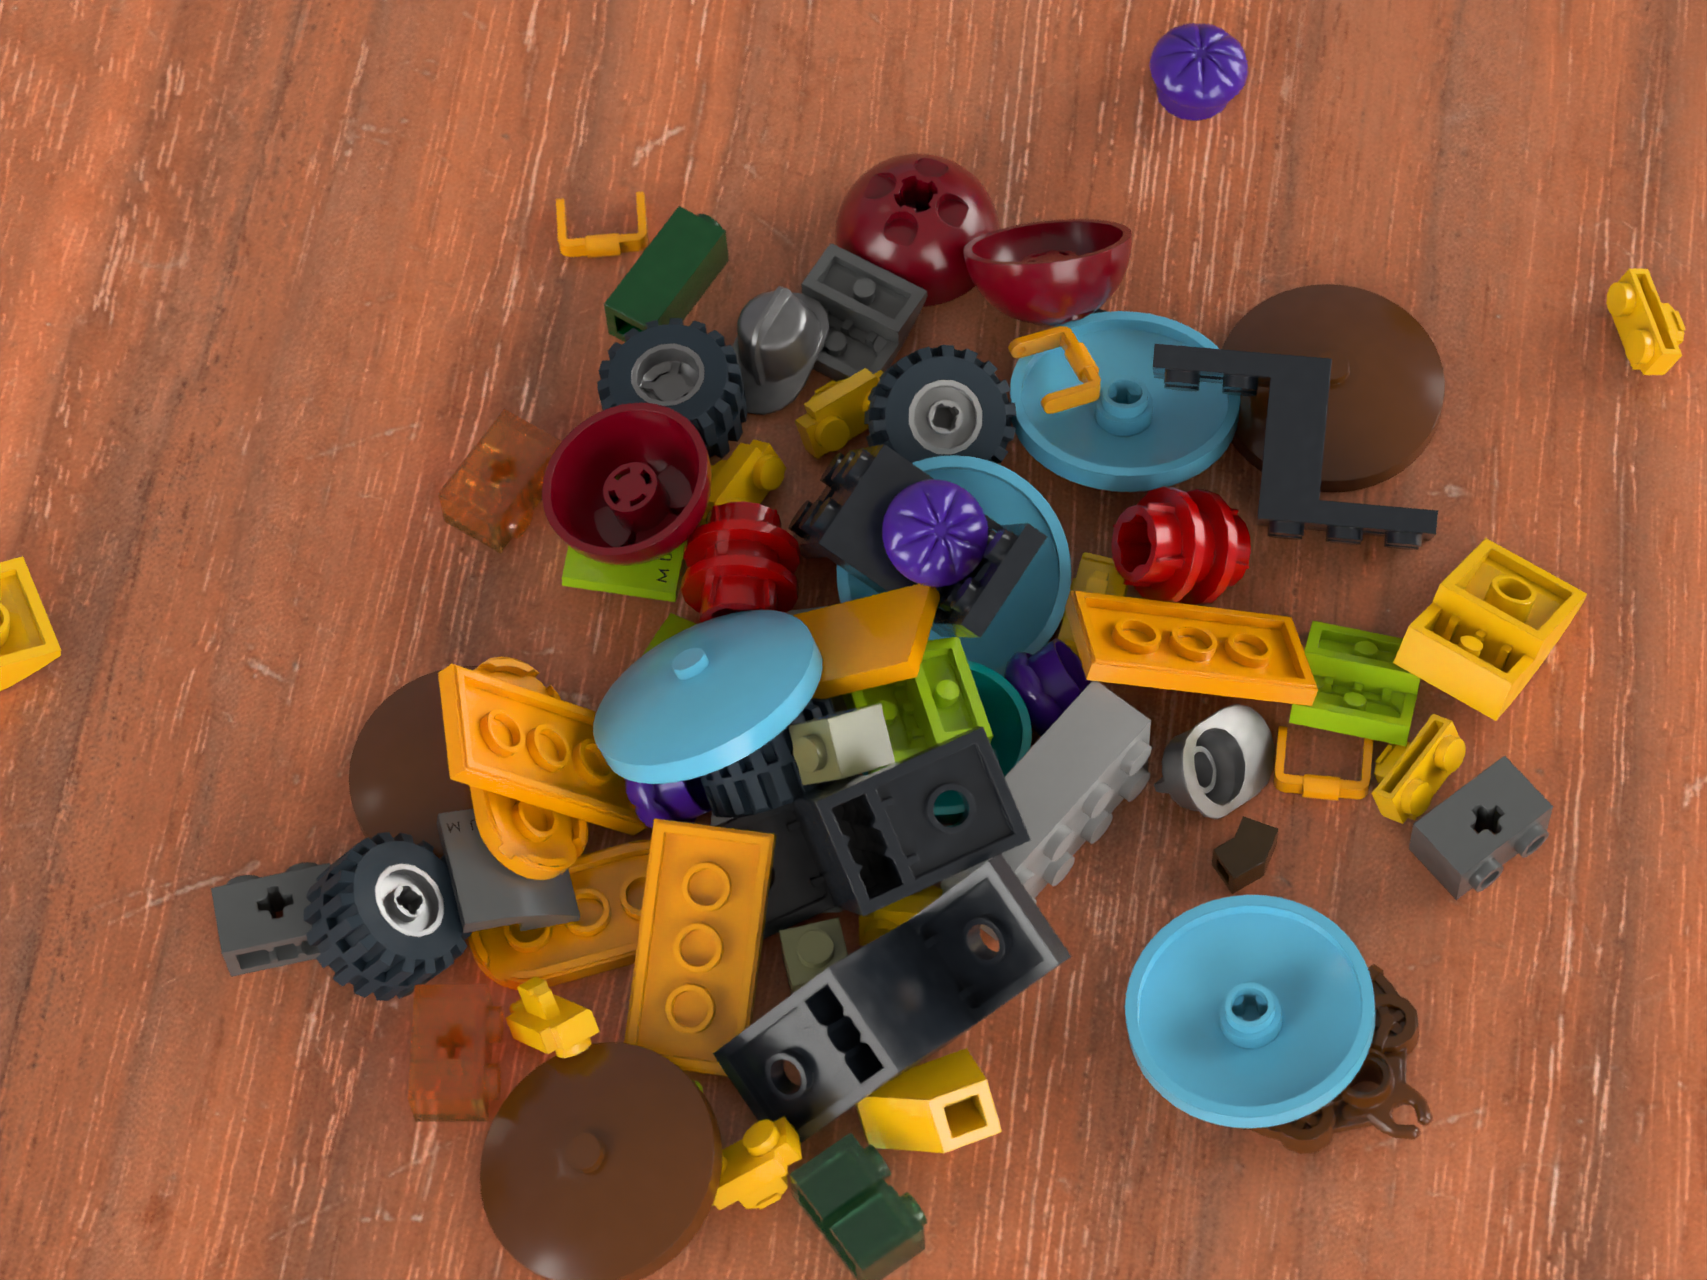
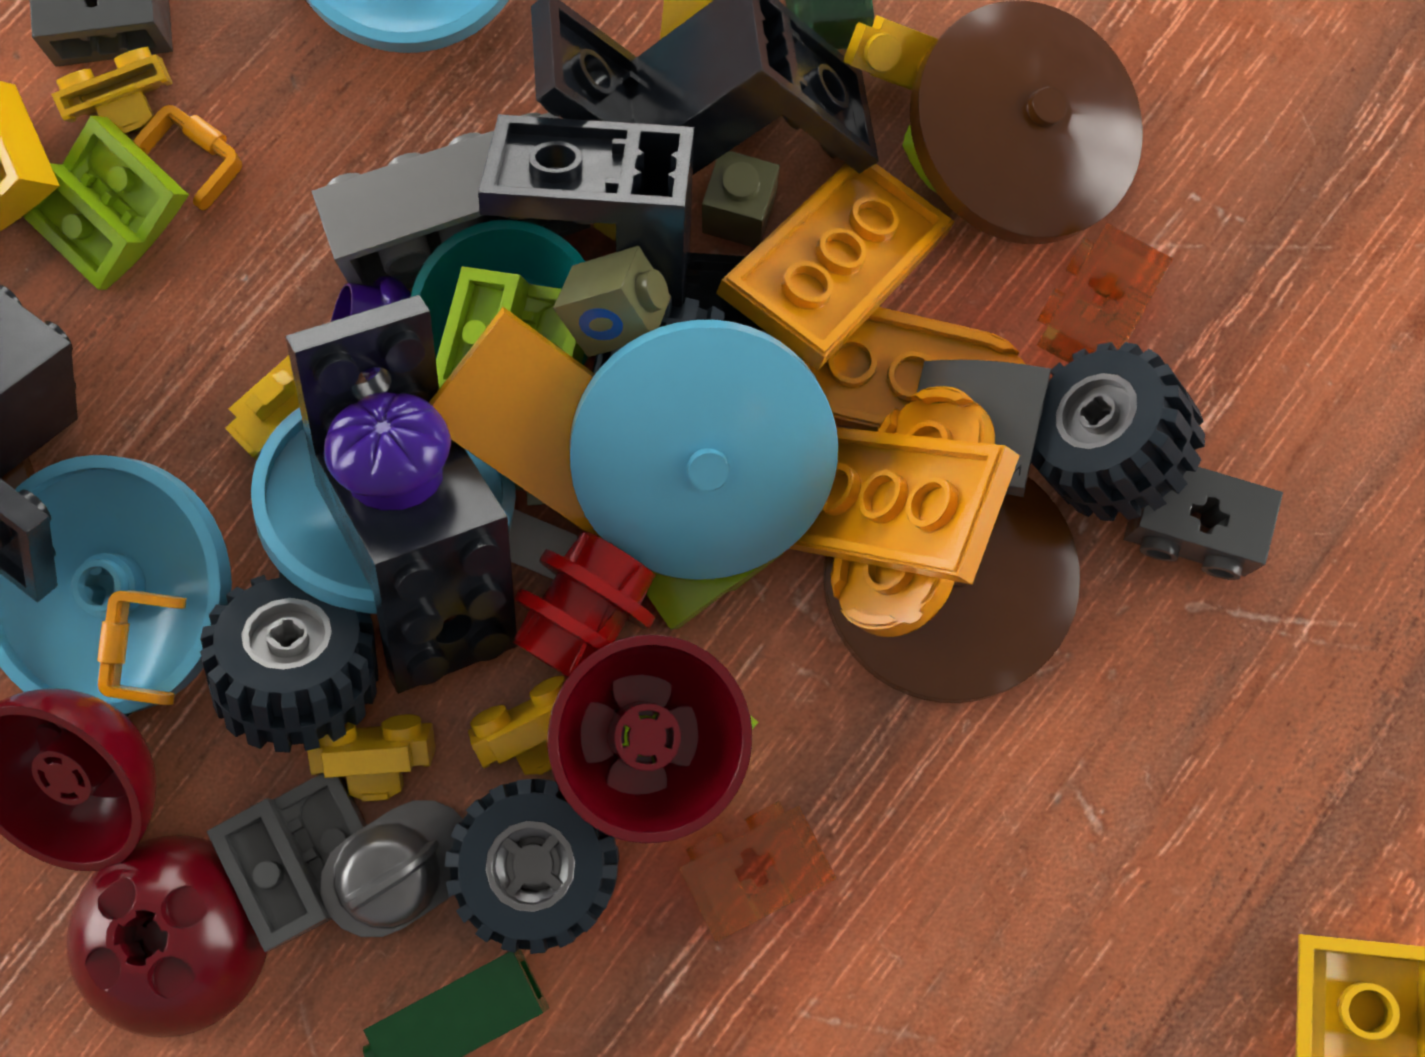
camera: 155 degrees left, 15 degrees up
(550, 1021) = (1007, 266): yellow piece -> none
(1181, 546) = (160, 389): red piece -> none
(1190, 648) = (223, 276): light orange tile -> none
(1219, 762) = (280, 187): flat silver piece -> none
(1246, 855) = (310, 106): dark brown piece -> none

